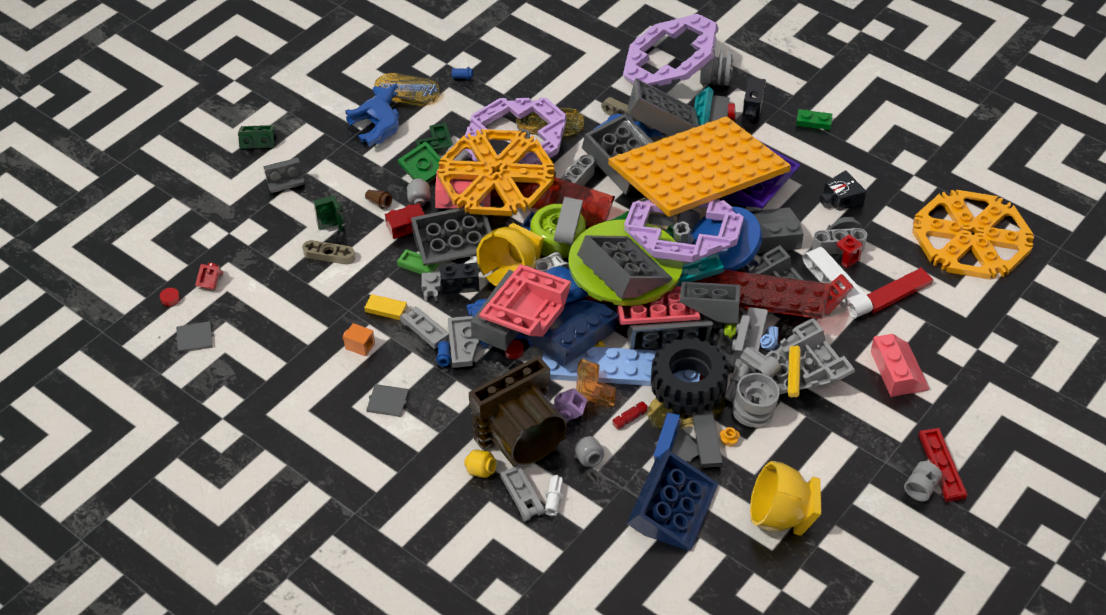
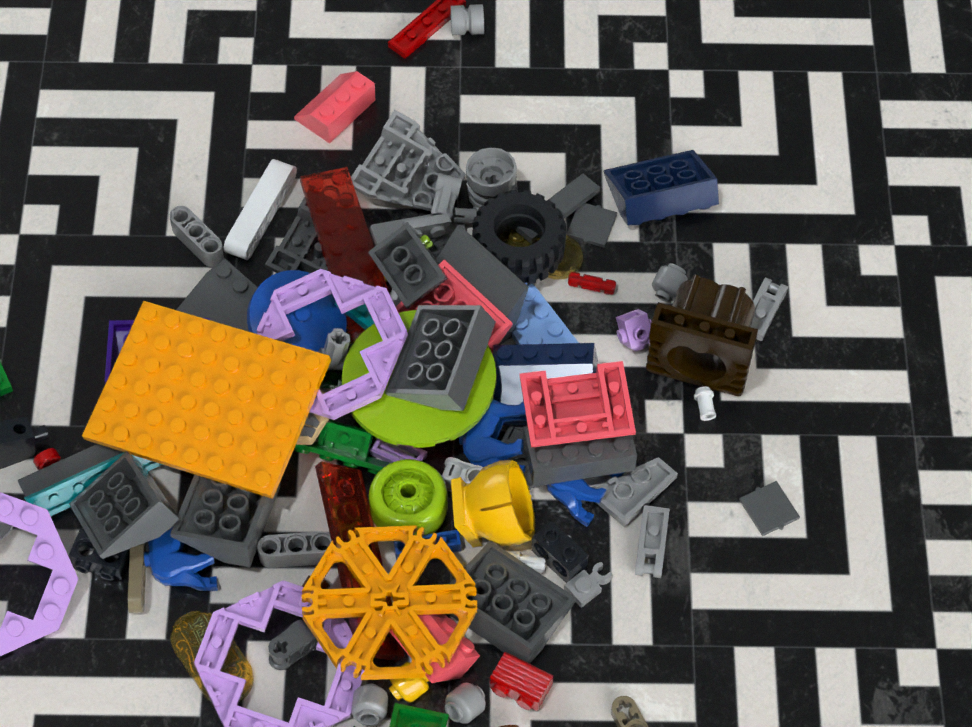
camera: 130 degrees left, 10 degrees up
(359, 339) = (729, 588): orange brick -> none
(385, 307) = (658, 605): yellow tile -> none
(413, 262) = (571, 632): bright green tile -> none
(443, 357) = (674, 492): blue pin -> none
(480, 463) = (768, 361): yellow head -> none
(553, 496) = (747, 279): white axle -> none
(568, 220) = (408, 467): light grey beam -> none
(590, 387) = (593, 324): clear orange plate -> none
(668, 434) = (596, 229): blue piece -> none
(729, 440) = (549, 188): light orange plate -> none
(770, 339) = (404, 210): light blue piece -> none
(785, 499) = (590, 85): yellow plate -> none
(794, 371) = (433, 161): yellow axle -> none
(837, 298) = (287, 183): red slope -> none
(843, 192) = (111, 274): torso -> none
(845, 223) = (168, 247): dark grey tile -> none
(852, 250) = (208, 213): red bracket -> none
(899, 289) = (223, 157): red tile -> none
(980, 243) = (70, 146): light orange plate -> none

